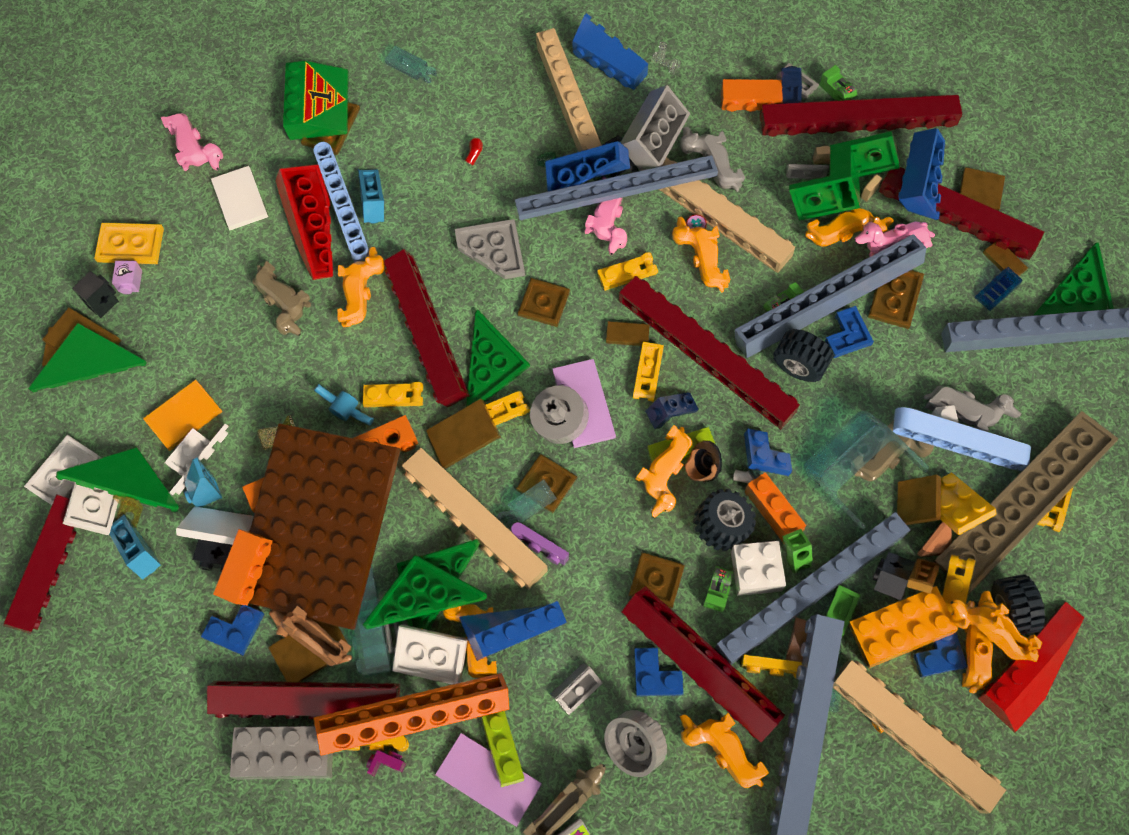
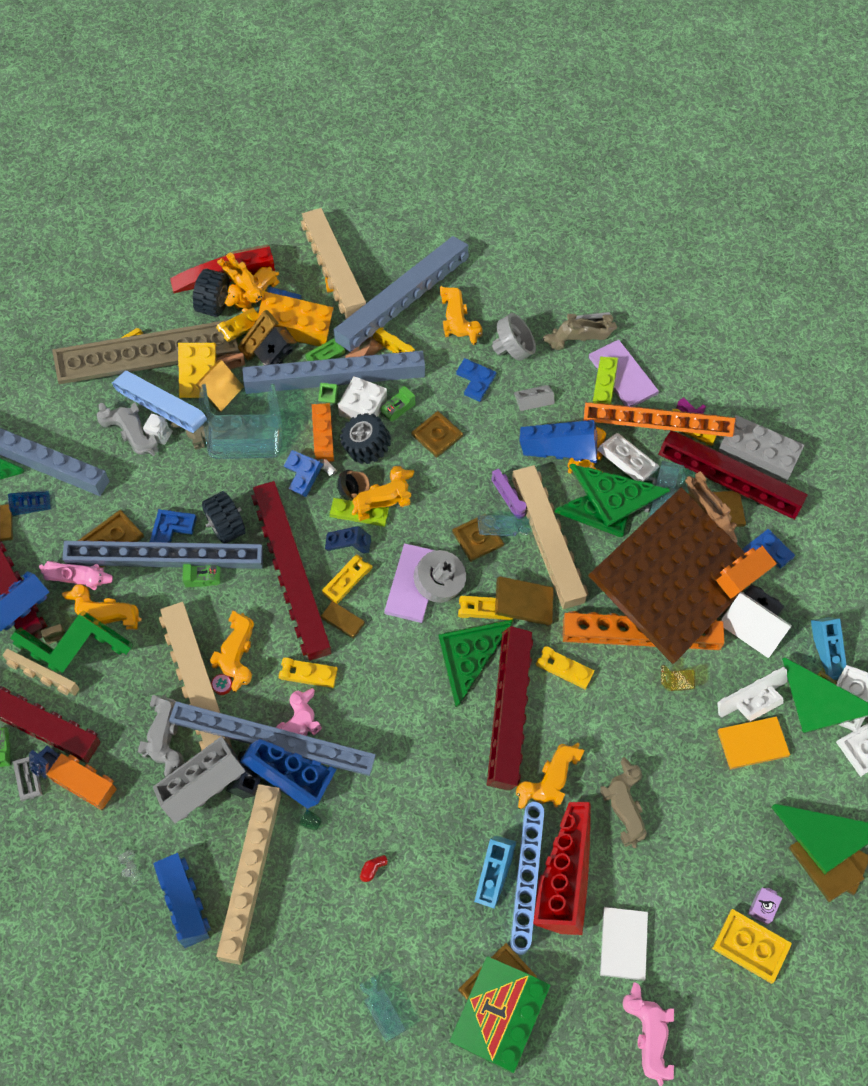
camera: 155 degrees left, 5 degrees down
(96, 293) = (801, 892): black brick -> none
(201, 485) = (757, 659): dark azure slope -> none
(343, 405) = (611, 675): dark azure piece -> none
(493, 246) = (410, 756): light grey plate -> none
(544, 302) = (394, 683): pearl gold tile -> none
(703, 664) = (441, 366): dark red brick -> none
(806, 171) = (91, 683): light grey slope -> none

